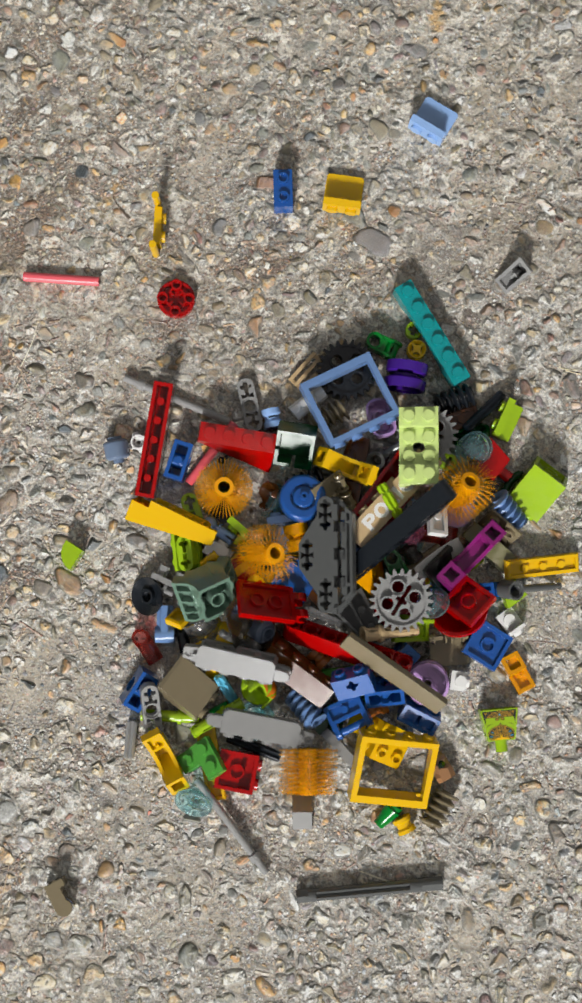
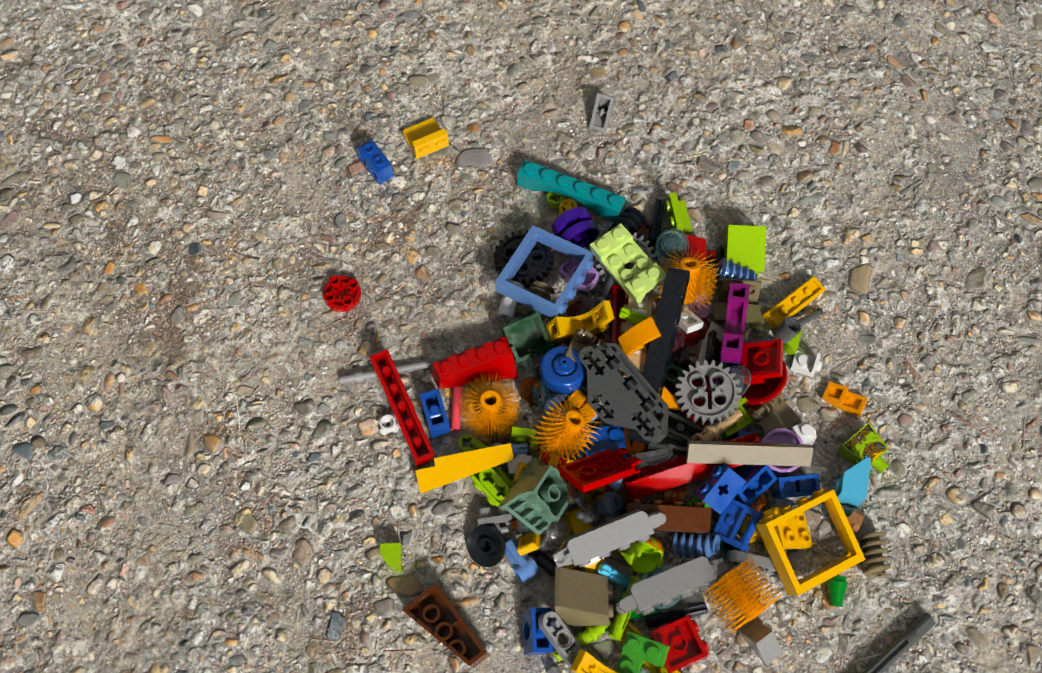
camera: 30 degrees left, 20 degrees down
(61, 278) = (231, 337): coral piece -> none
(76, 638) = (443, 621): none -> reddish brown wedge
(116, 449) = (372, 440): sand blue head -> none
(148, 647) = (519, 591): clear red piece -> none
(160, 218) = (287, 242): yellow plate -> none
(241, 392) = (460, 327): light grey beam -> none
(271, 417) = (488, 331): light blue wheel -> none
(304, 364) = (489, 296): tan tile -> none
(377, 518) = (637, 336): none -> light orange slope
(384, 346) = (539, 220): green piece -> none
(404, 824) = (857, 589): yellow wheel -> none
(432, 121) = (457, 50): light blue bracket -> none
(463, 746) = (853, 484): none -> medium azure slope
(487, 646) = (803, 393): blue plate -> none

